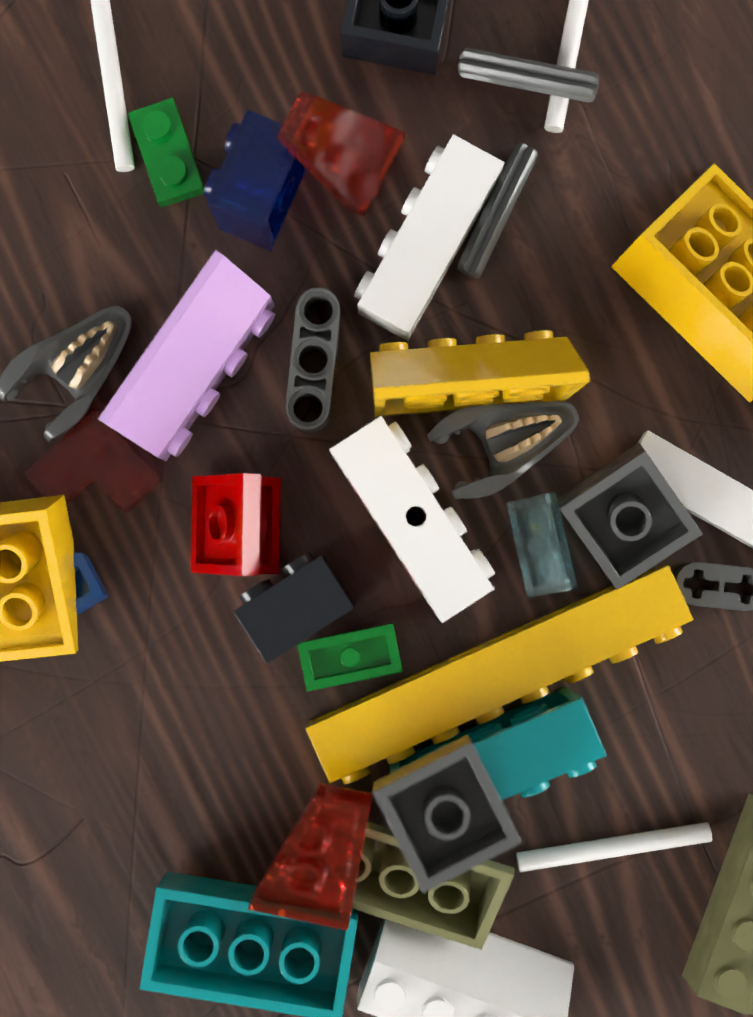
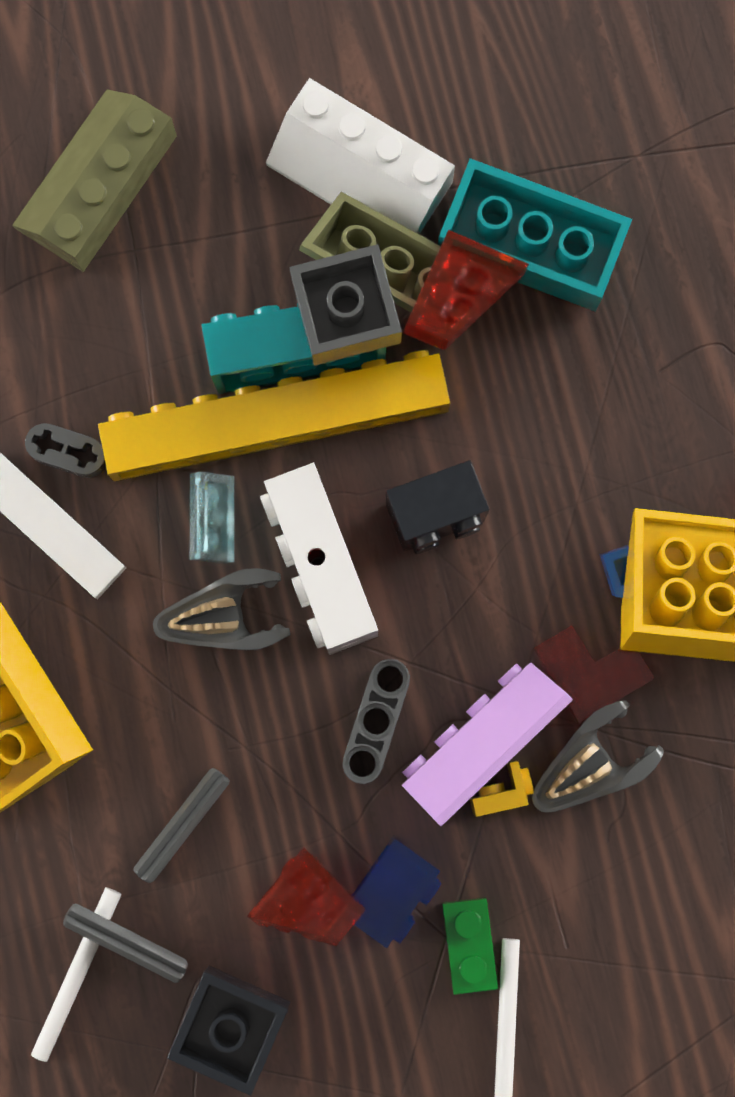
camera: 165 degrees left, 5 degrees down
(155, 310) = (495, 798): none -> yellow bracket
(235, 524) = (476, 590): red bracket -> none
(349, 657) = (398, 456): green plate -> none
(429, 237) = (247, 812): white brick -> none
(474, 374) = (237, 675): yellow slope -> none
(614, 847) = (209, 251): white bar -> none
(628, 516) = (132, 524): dark grey brick -> none

